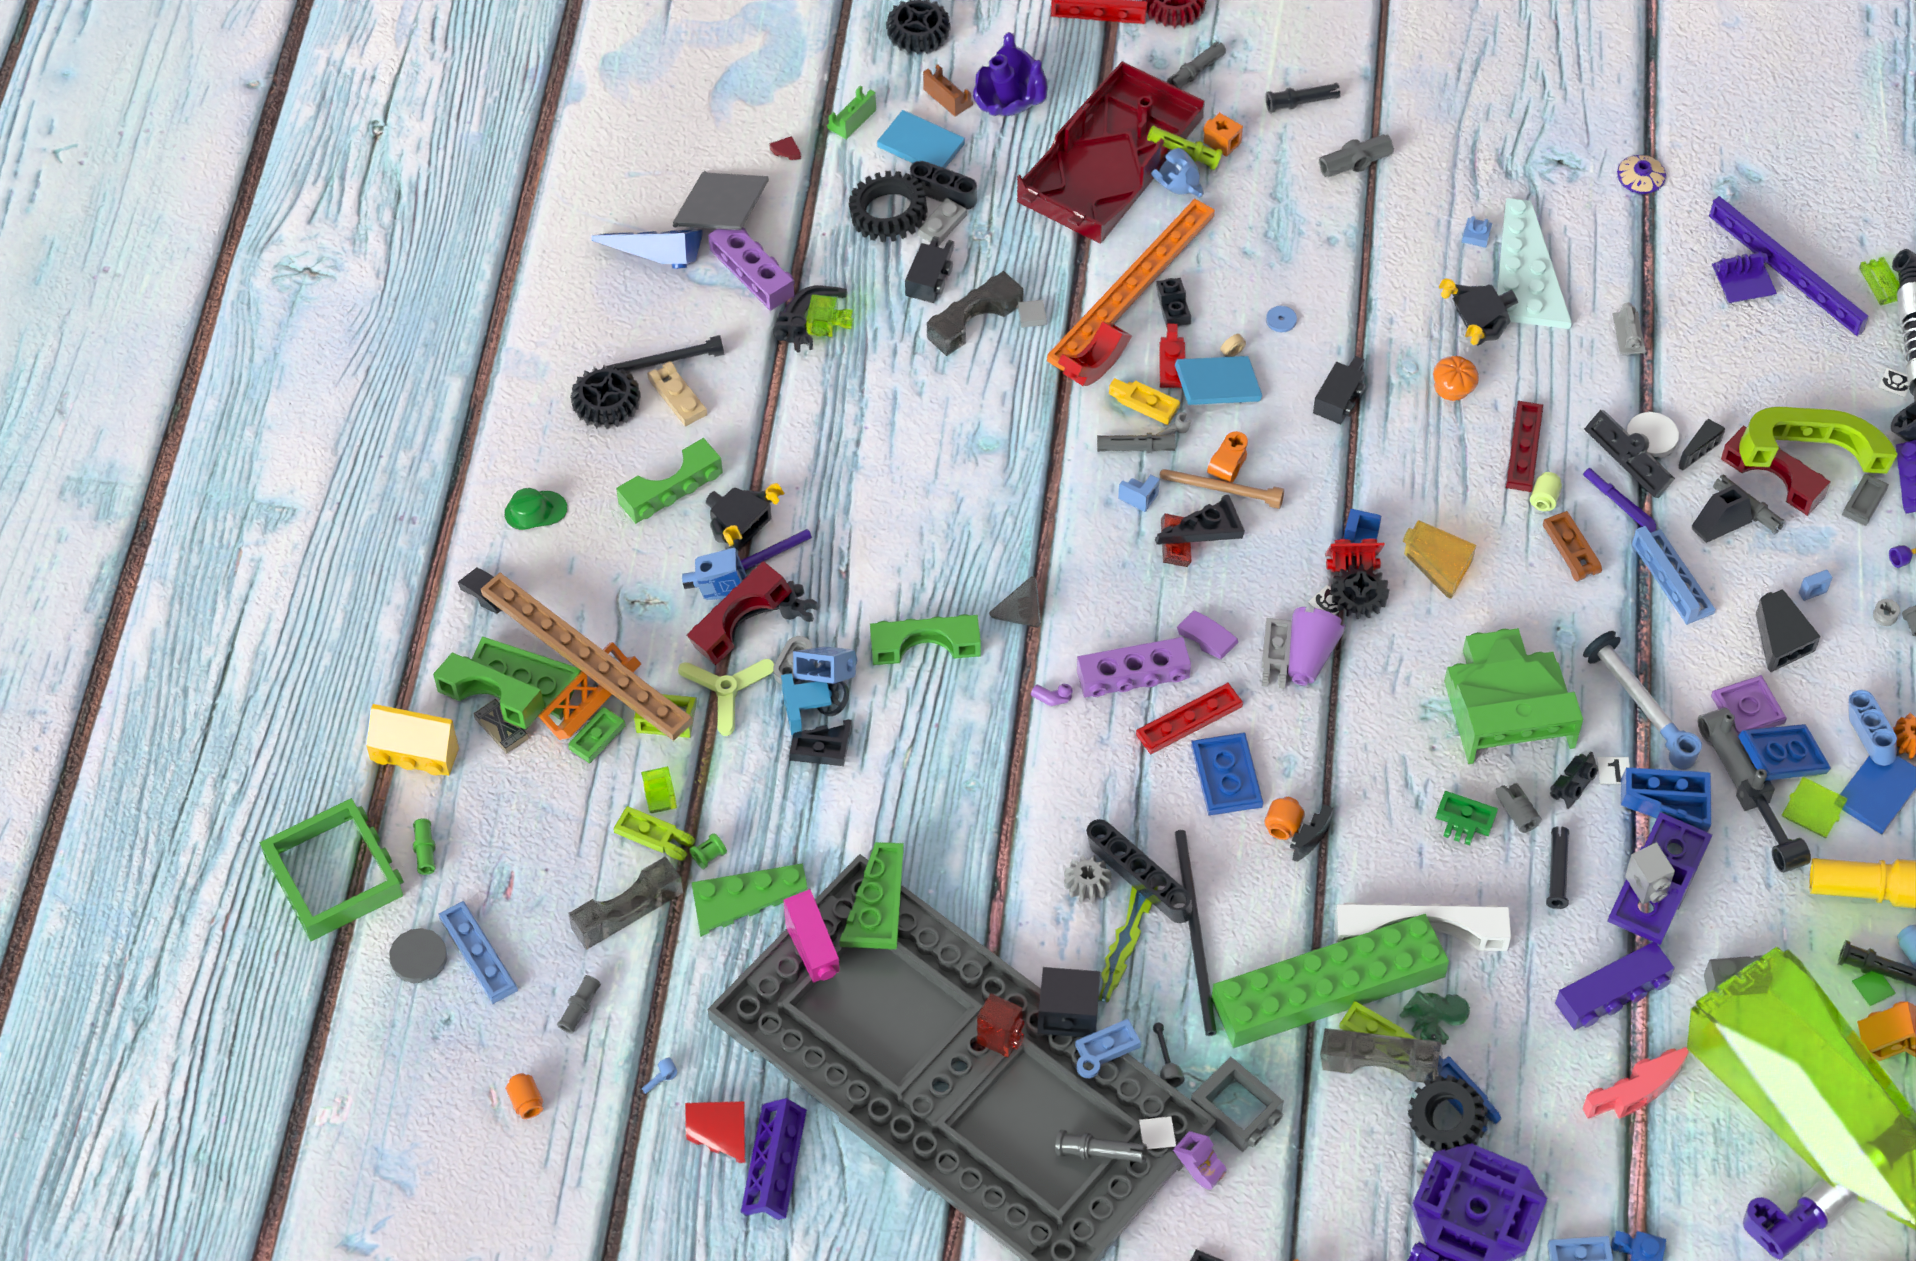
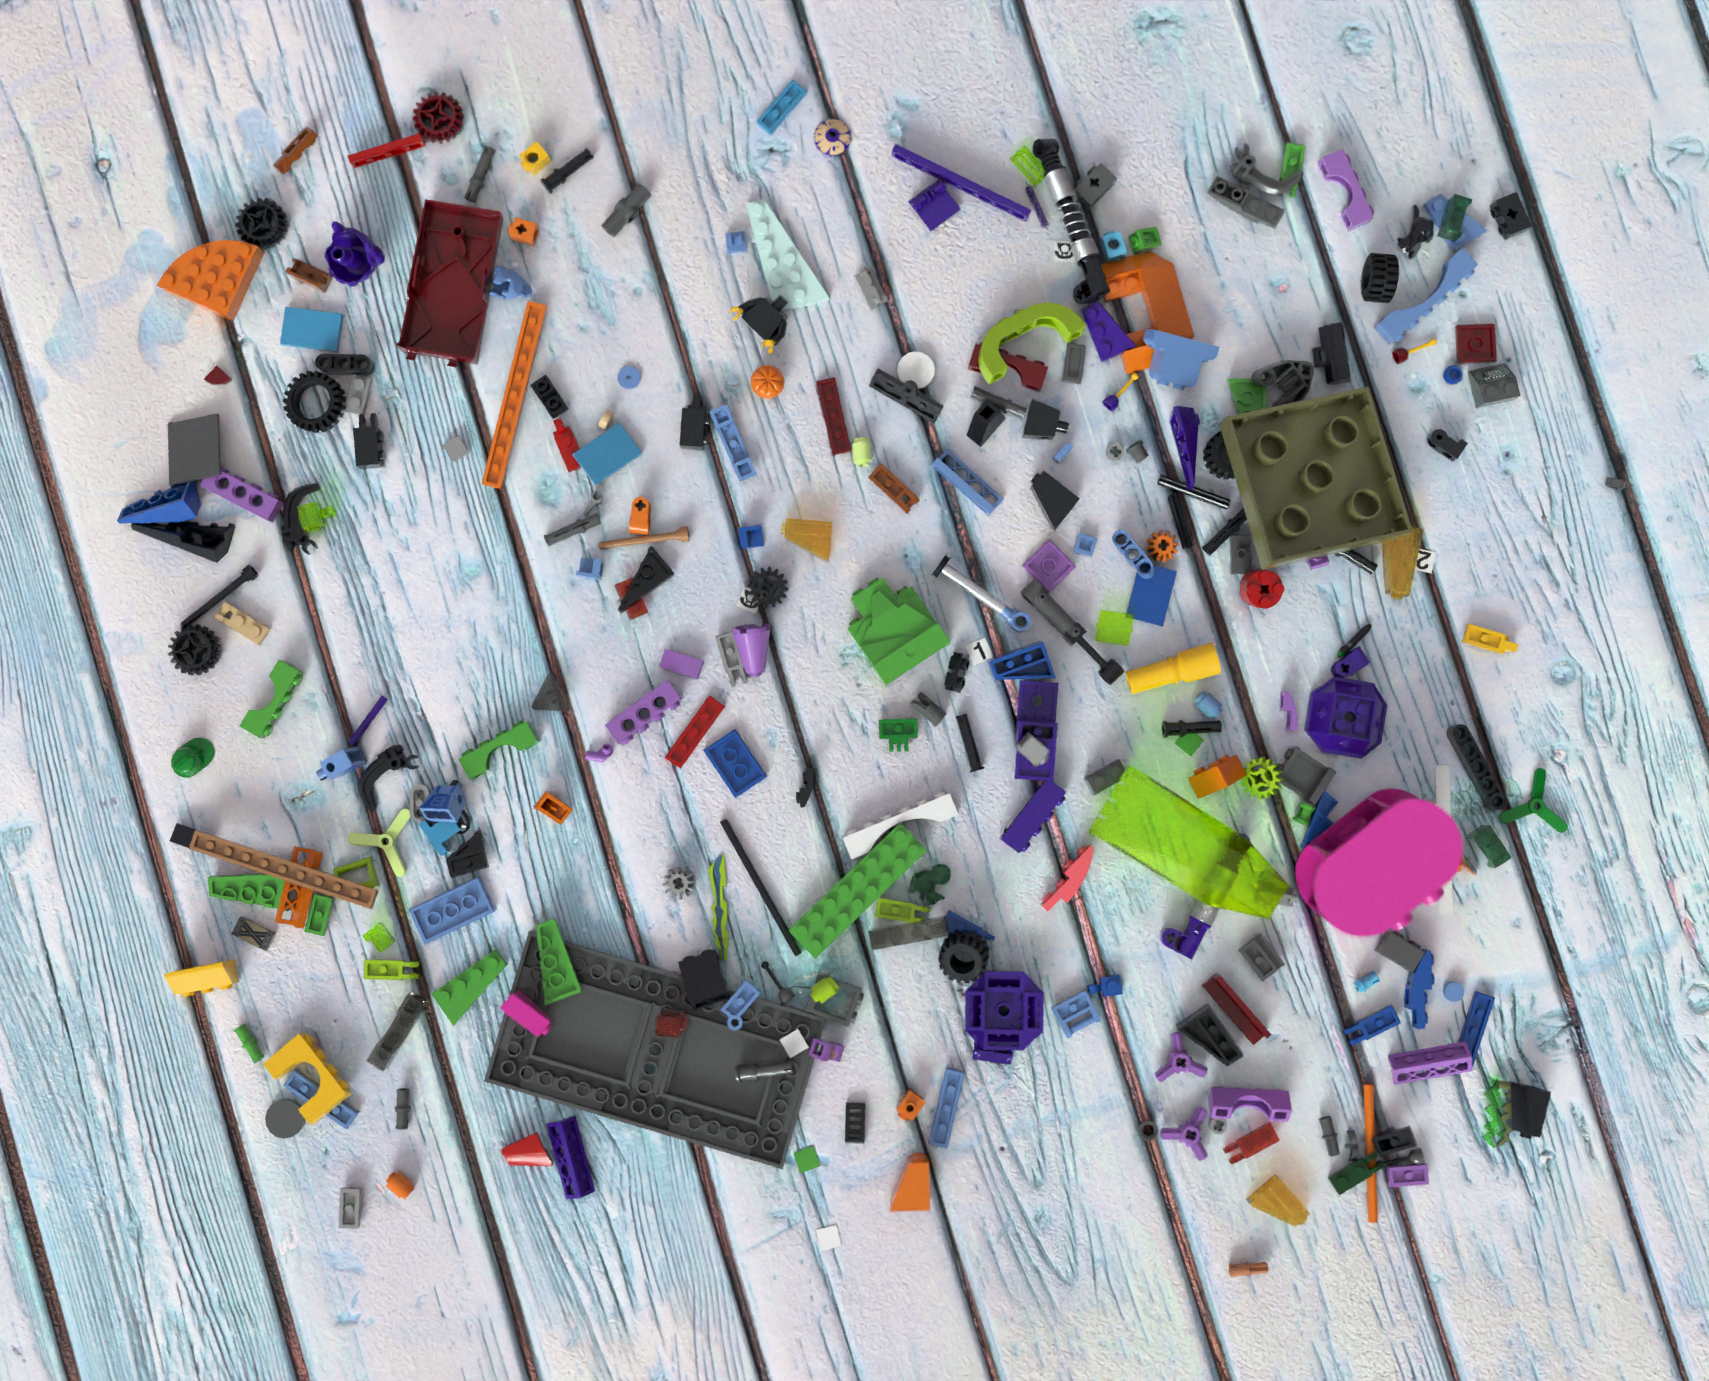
camera: 25 degrees left, 30 degrees up
(352, 908) = (181, 1112): bright green window -> none
(442, 1097) = (350, 1208): none -> light grey plate
(462, 677) = (254, 919): bright green arch -> none
(499, 937) = (331, 1089): none -> yellow arch
(668, 1072) = (478, 1126): medium blue hand -> none
(682, 297) = (205, 541): none -> black wedge
(708, 851) = (431, 967): bright green bush -> none
(741, 513) = (331, 707): black torso -> none
(759, 589) = (360, 810): dark red arch -> none
(768, 799) = (452, 910): none -> medium blue tile
(836, 52) = (214, 275): none -> orange brick
(853, 114) = (251, 325): bright green hinge -> none
(961, 726) = (553, 807): none -> orange slope
(996, 296) = (425, 446): clear smoke arch -> none
(1097, 356) = (516, 471): red arch -> none
(1142, 882) = (699, 864): black beam -> none
(1145, 400) = (564, 491): yellow hinge -> none
(1196, 150) = (511, 258): lime pin -> none
(1232, 1071) = (823, 989): none -> lime brick
(1269, 72) = (534, 150): none -> yellow brick
(1284, 818) = (785, 783): orange head -> none
(1344, 548) = (760, 555): red hinge -> none
(1382, 423) = (732, 442): none -> medium blue slope
(1590, 125) = (781, 107): none -> dark azure tile
(1623, 502) = (915, 435): dark purple piece -> none
(1704, 441) = (953, 360): black slope -> none
(1784, 751) = (1083, 597): blue tile -> none
(1800, 543) = (1043, 422): none -> black torso
(1808, 700) = (1085, 544): none -> medium blue tile
(1875, 322) = (1037, 209): none -> piece

